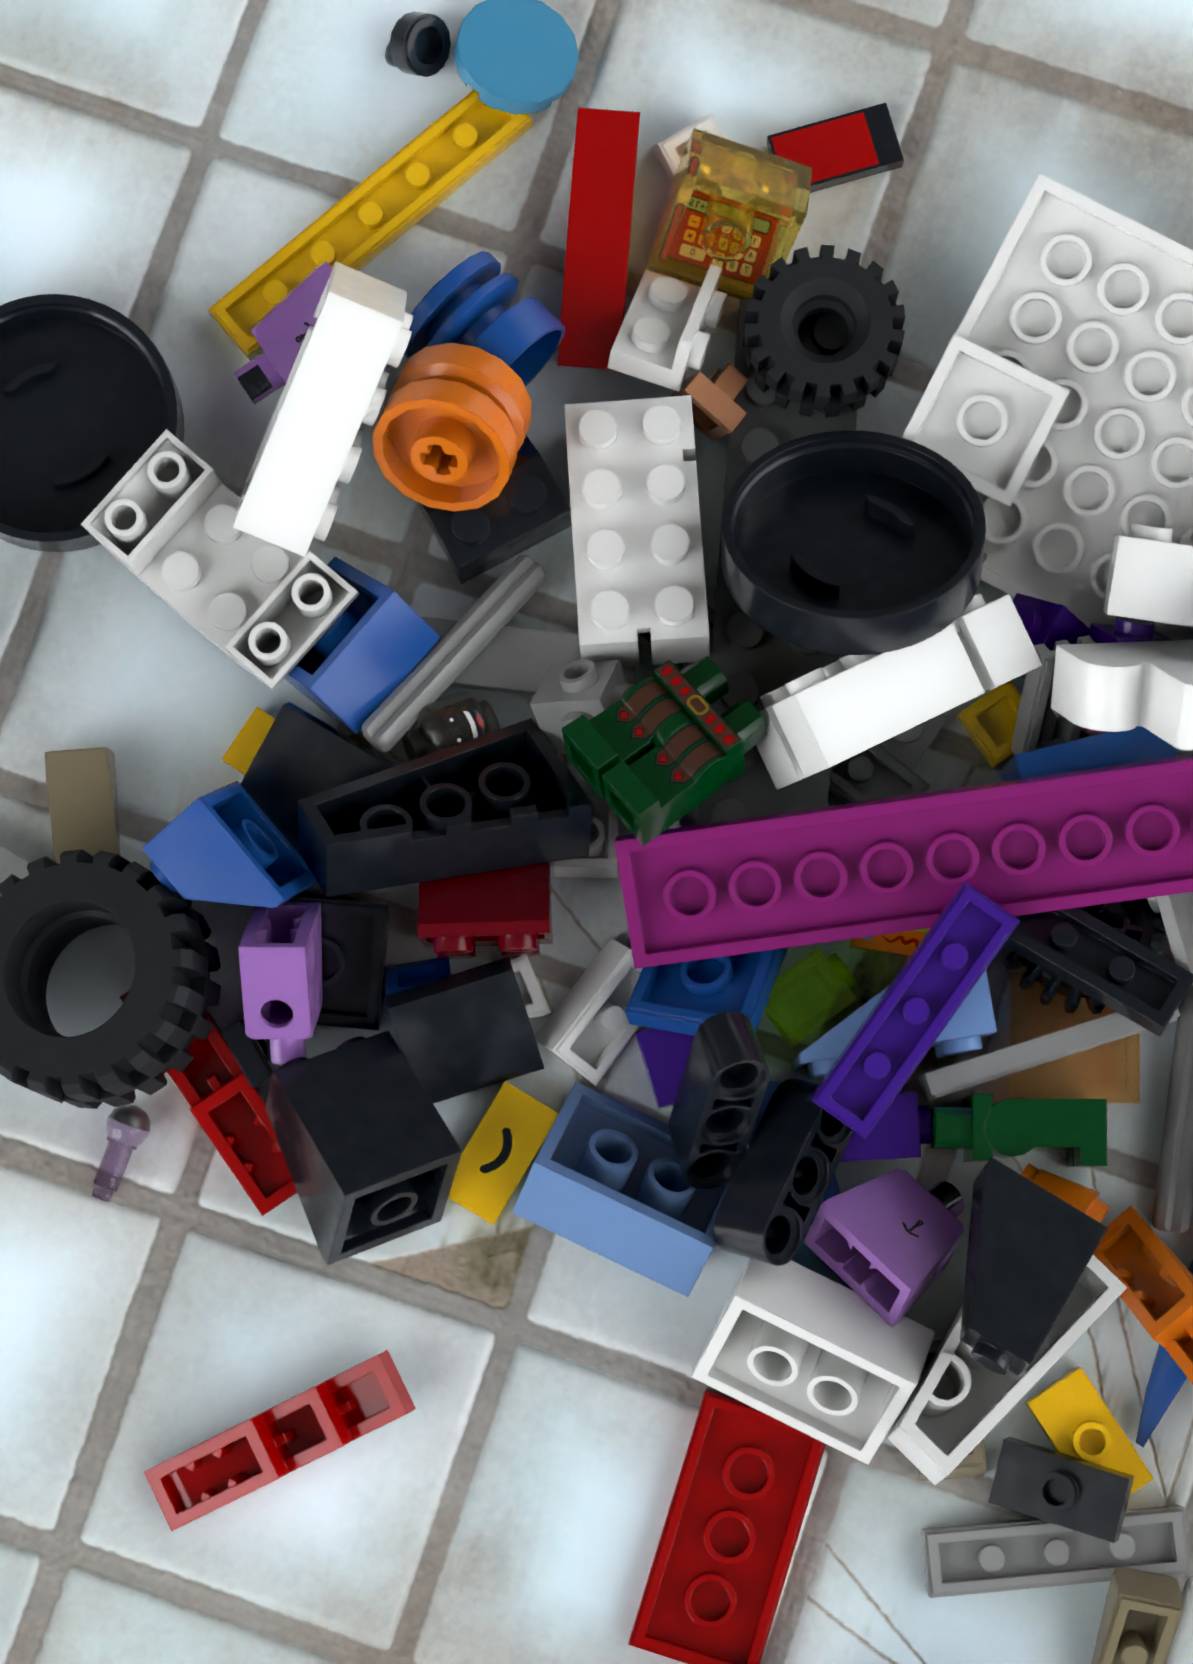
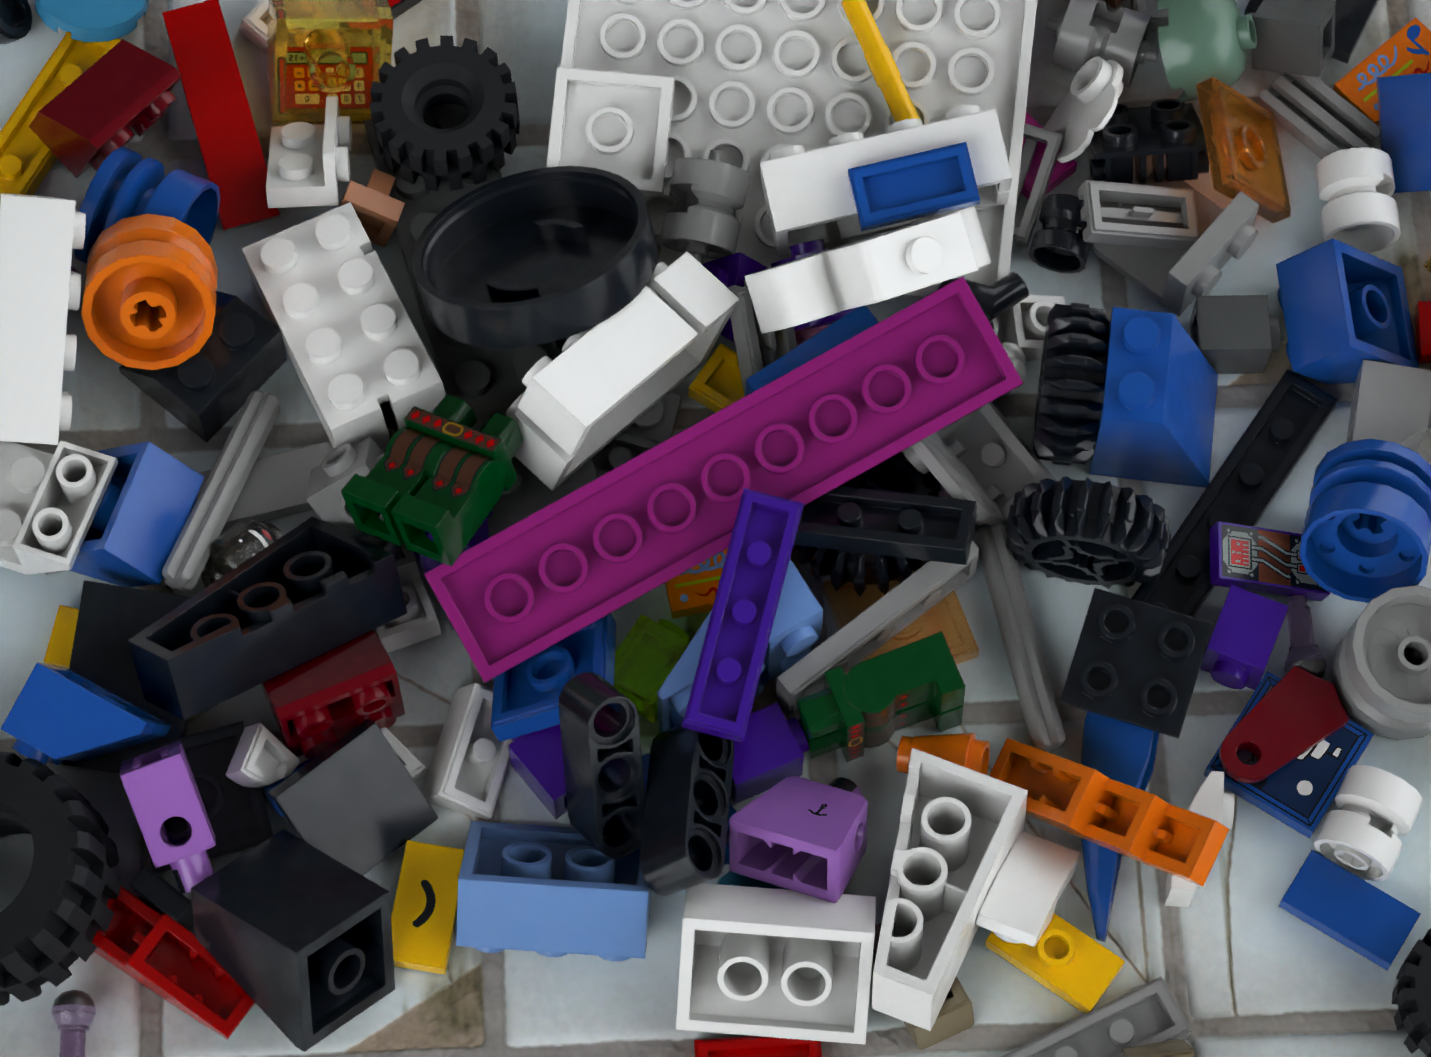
camera: 25 degrees left, 15 degrees down
(391, 950) = (260, 759): none -> white tile
(484, 192) = (103, 106): none -> dark red slope
(1019, 1266) = (923, 795): black slope -> none
(1046, 541) = (705, 205): none -> light grey wheel
(1061, 1489) = (1045, 998): black plate -> none
(1088, 1376) = (1027, 889): none -> white slope

